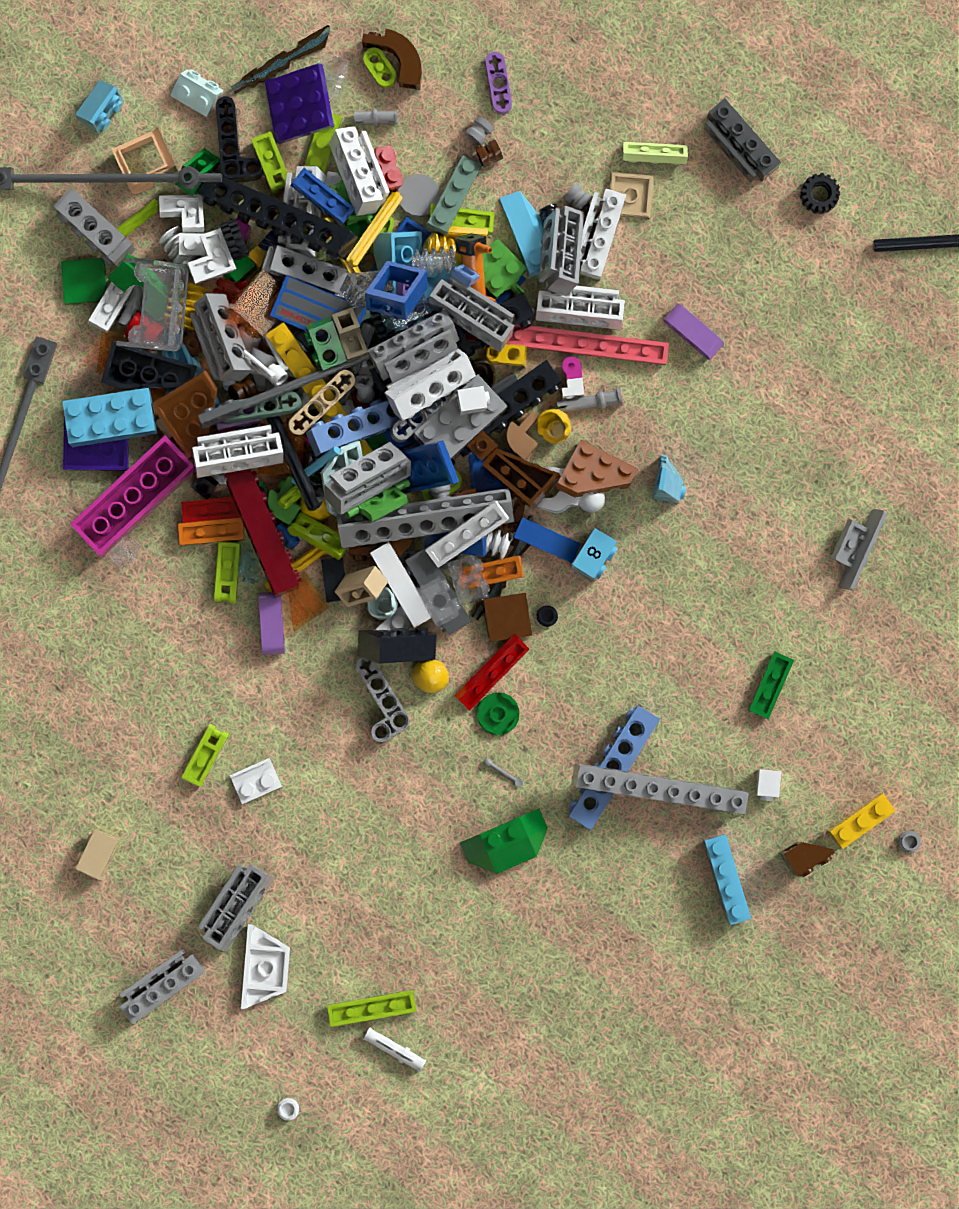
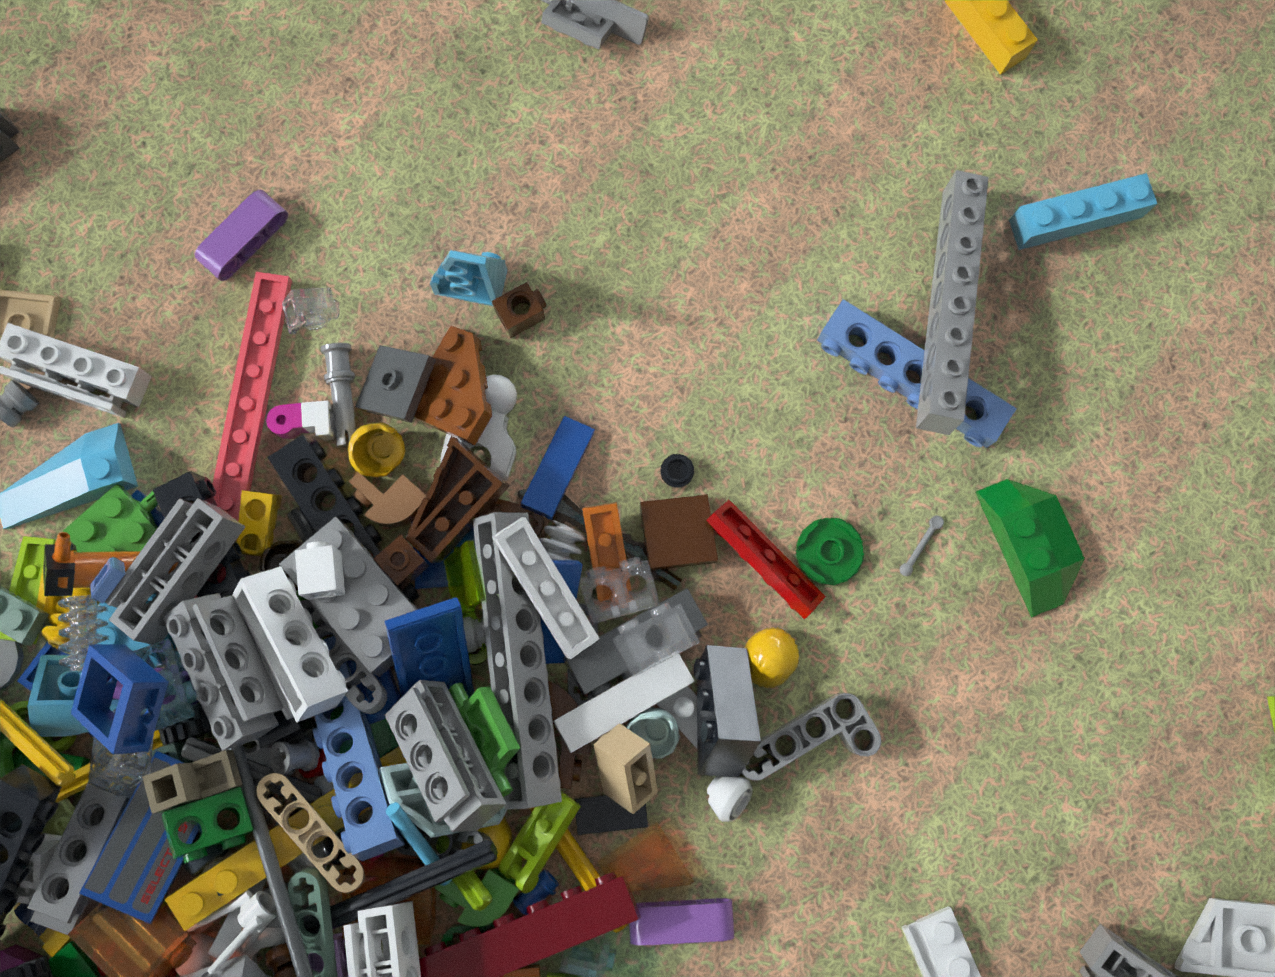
camera: 90 degrees left, 5 degrees down
(345, 651) = (729, 796): none -> white cone
(473, 484) = (464, 577): none -> clear neon green piece
(547, 210) = (32, 449): black bush -> none
(563, 251) = (87, 421): light grey brick -> none
(582, 307) = (203, 393): white brick -> none
(594, 554) = (584, 390): medium azure brick -> none
(597, 435) = (395, 383): none -> dark grey plate
(643, 379) = (309, 308): none -> clear brick
(649, 502) = (517, 323): none -> reddish brown brick
(768, 784) = (937, 149): white brick -> none
(771, 685) = (788, 141): green plate -> none
(803, 856) = (1050, 93): reddish brown slope -> none
(826, 182) = (31, 33): black tyre -> none

